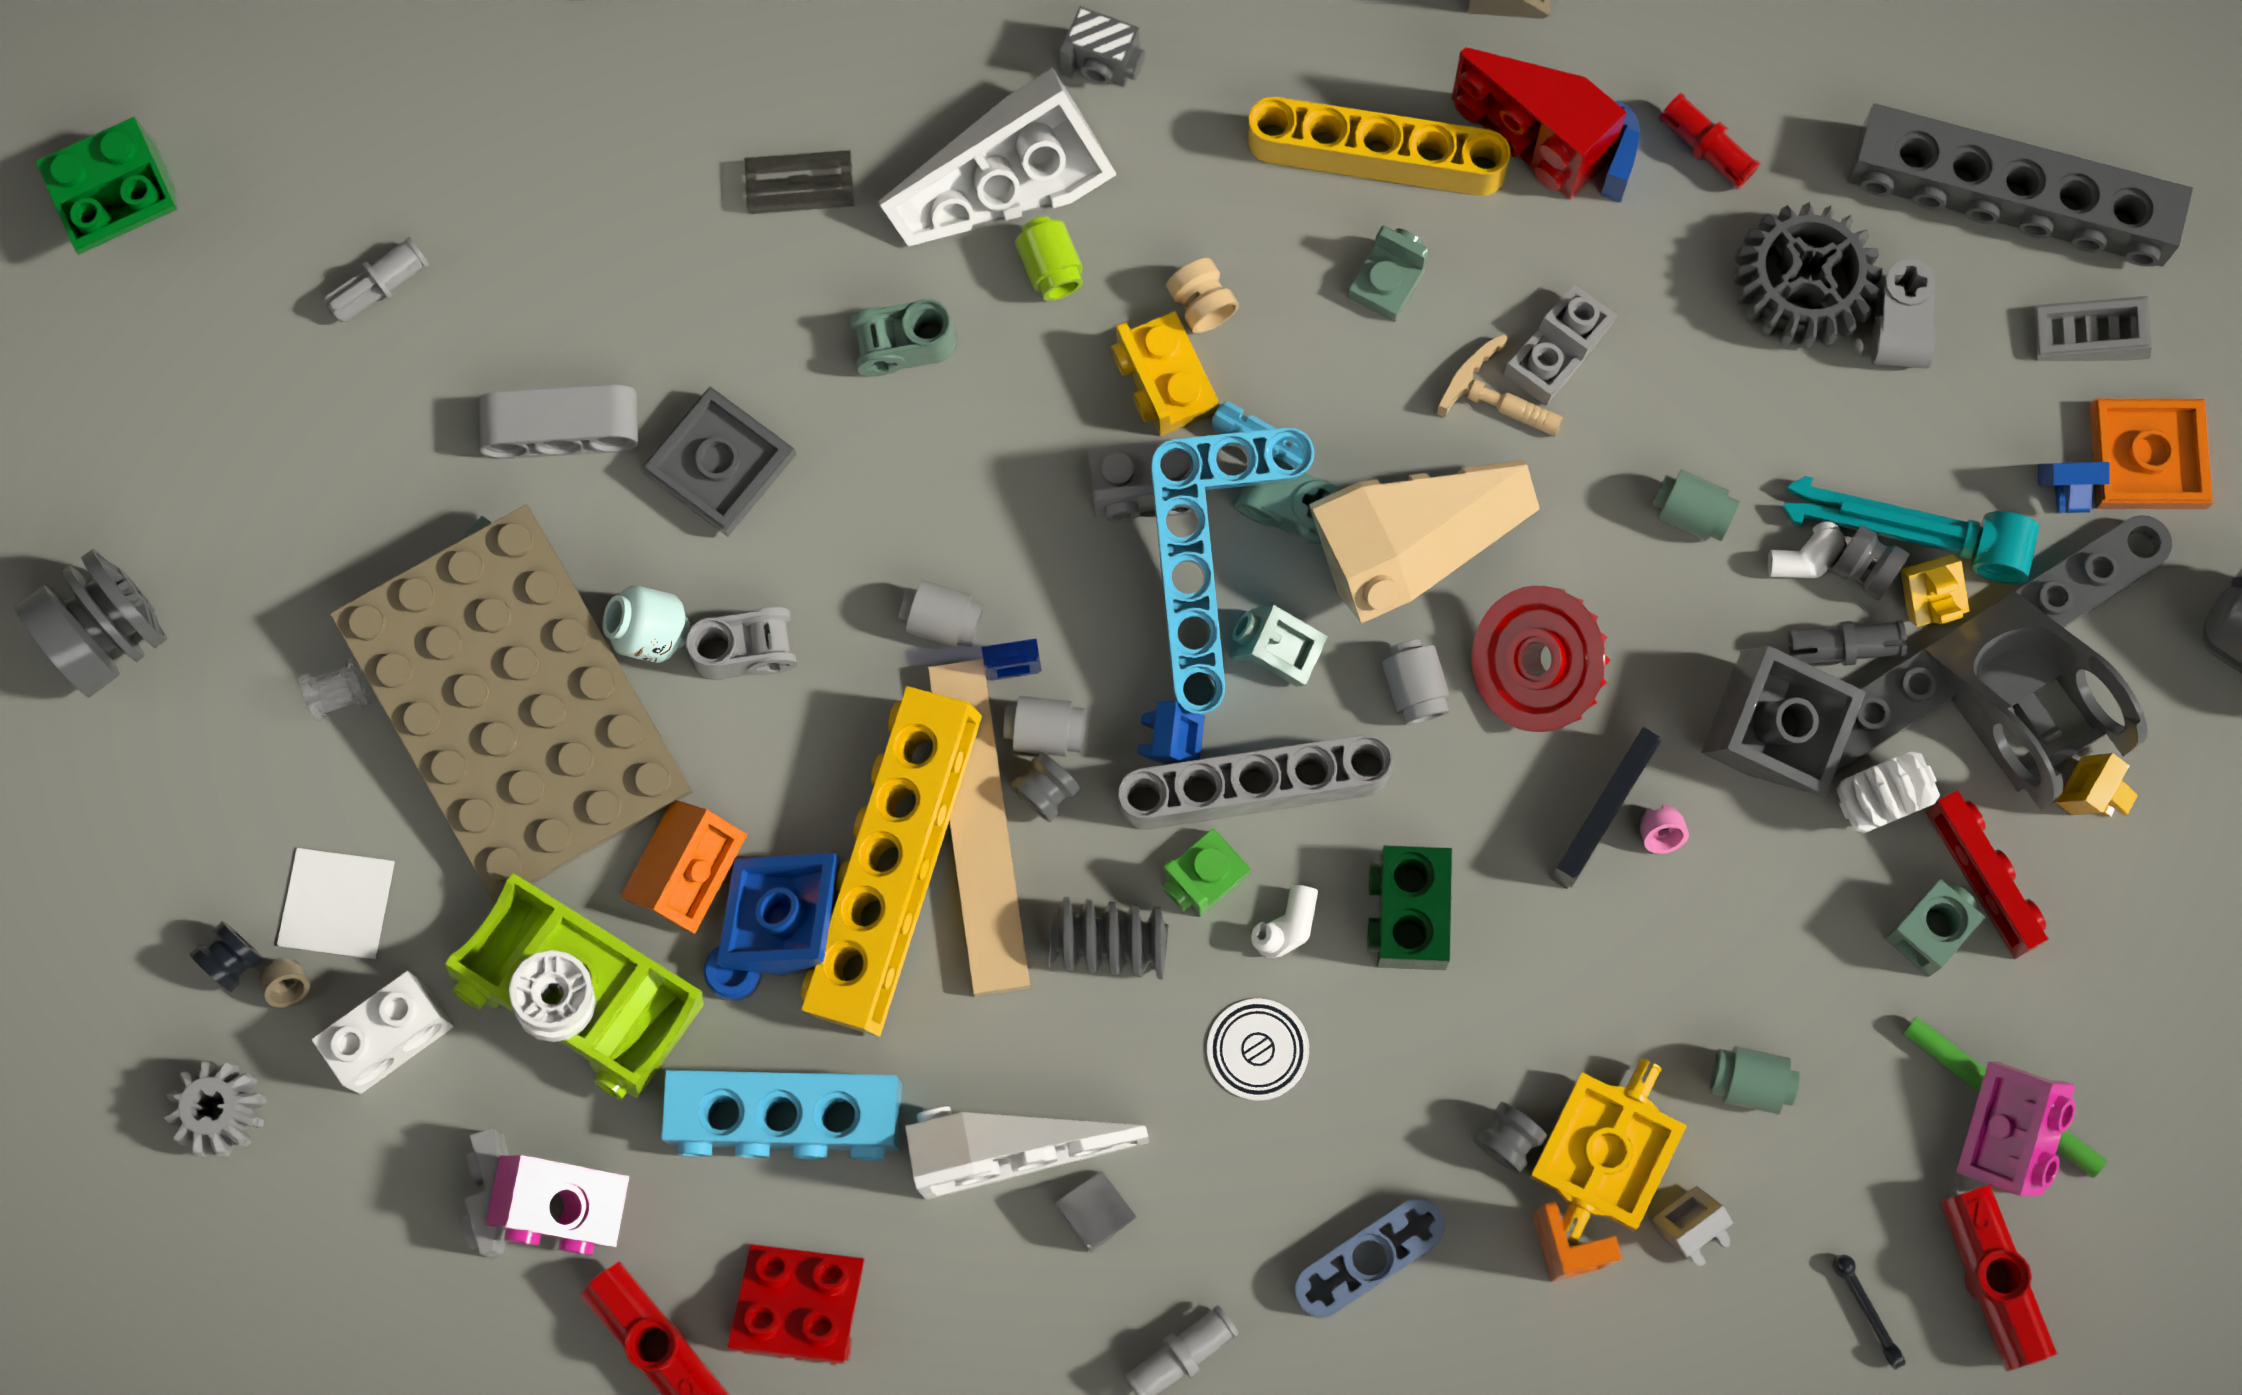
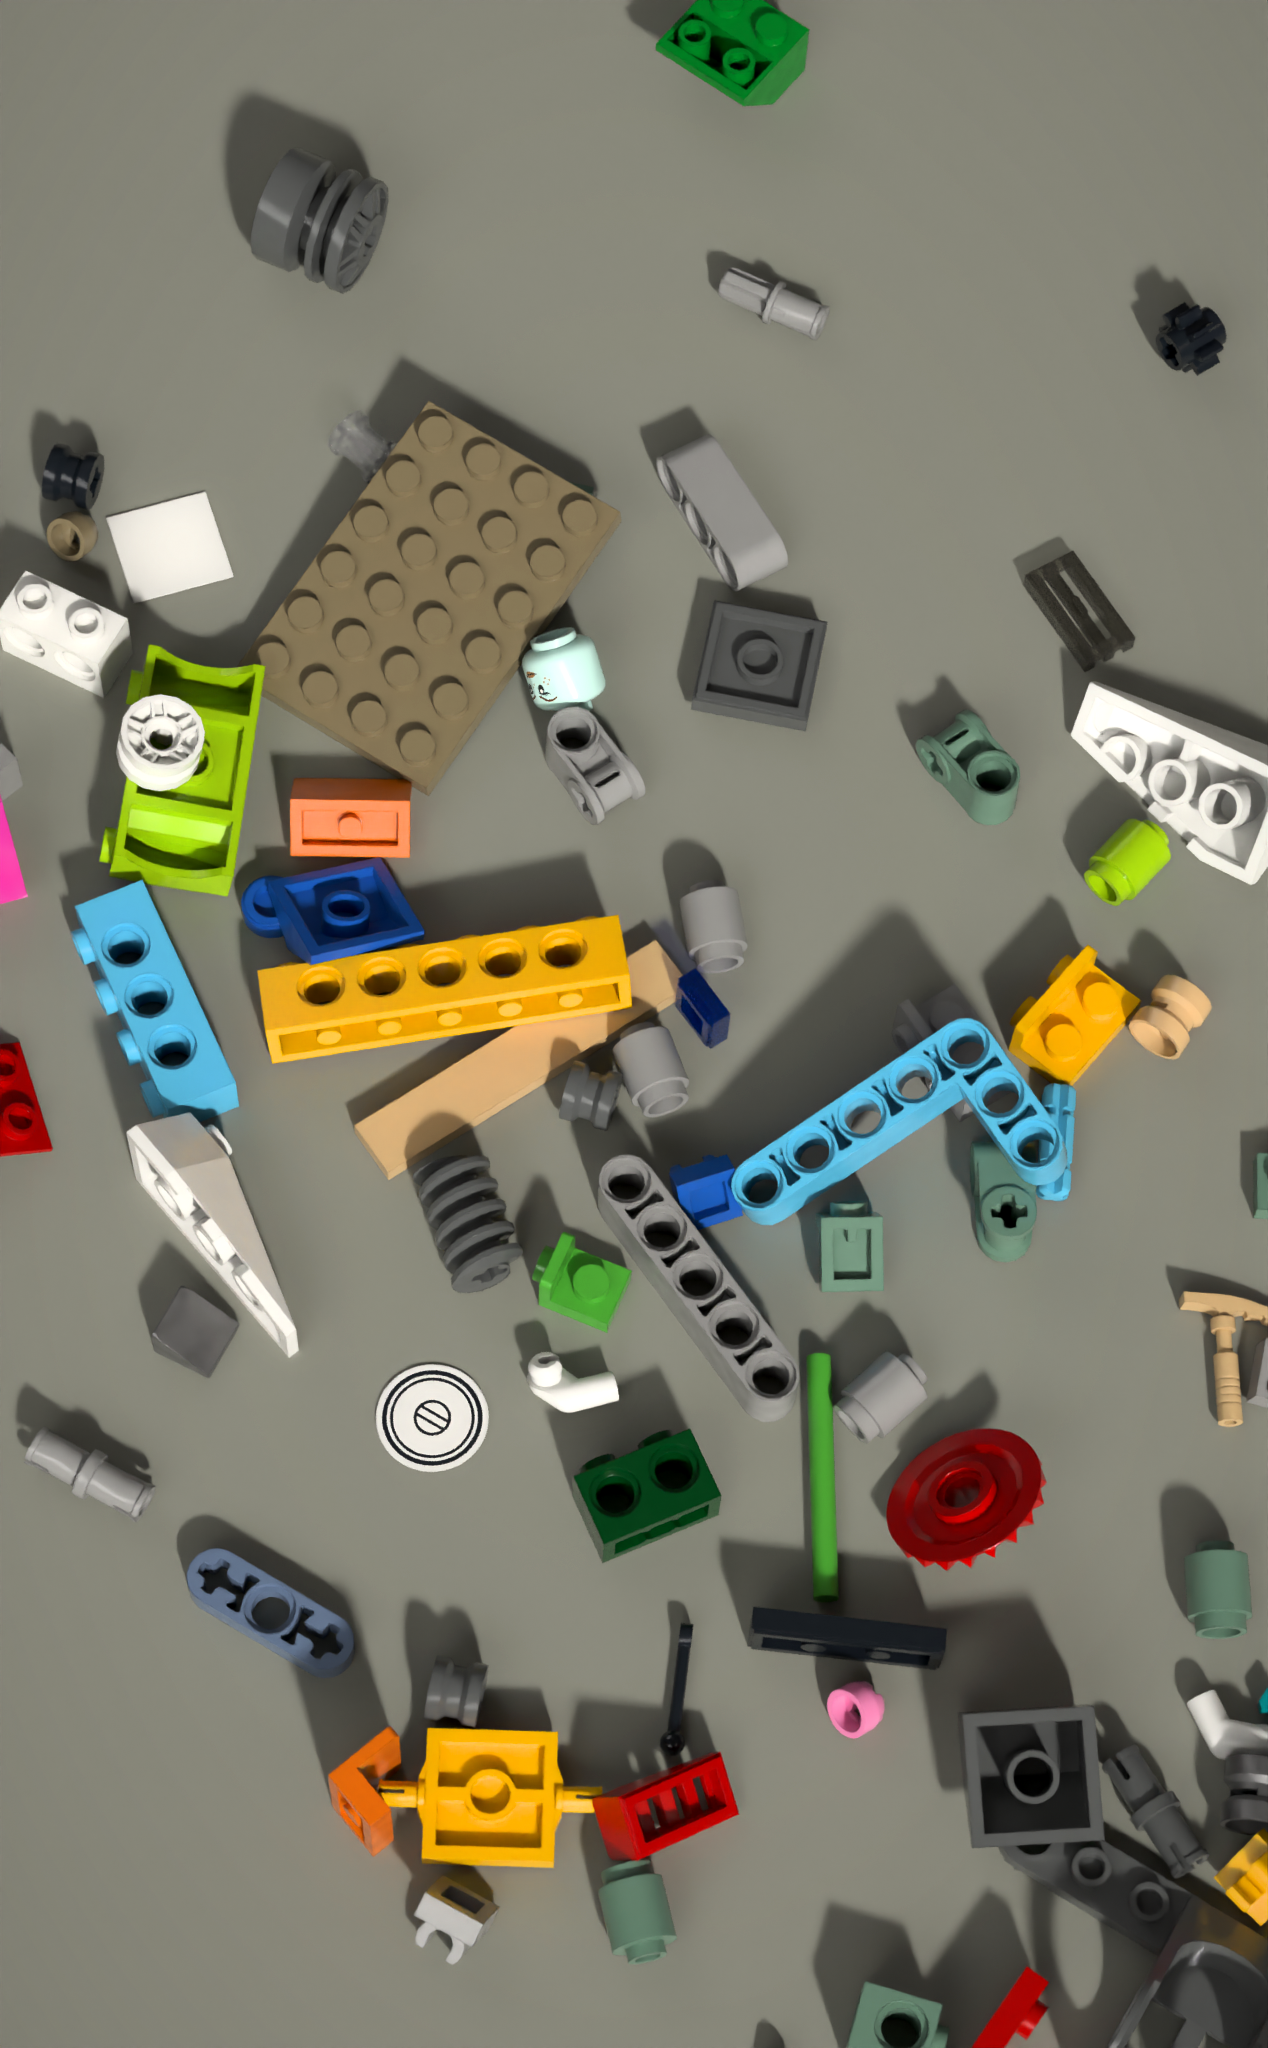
camera: 55 degrees right, 10 degrees down
(1410, 534) = (1027, 1315): tan wedge -> none
(1457, 762) = (822, 1478): none -> bright green bar
(1621, 985) = (672, 1741): none -> black hinge
(1672, 1050) = (627, 1819): none -> red slope
(1887, 792) = (1010, 1912): white gear -> none

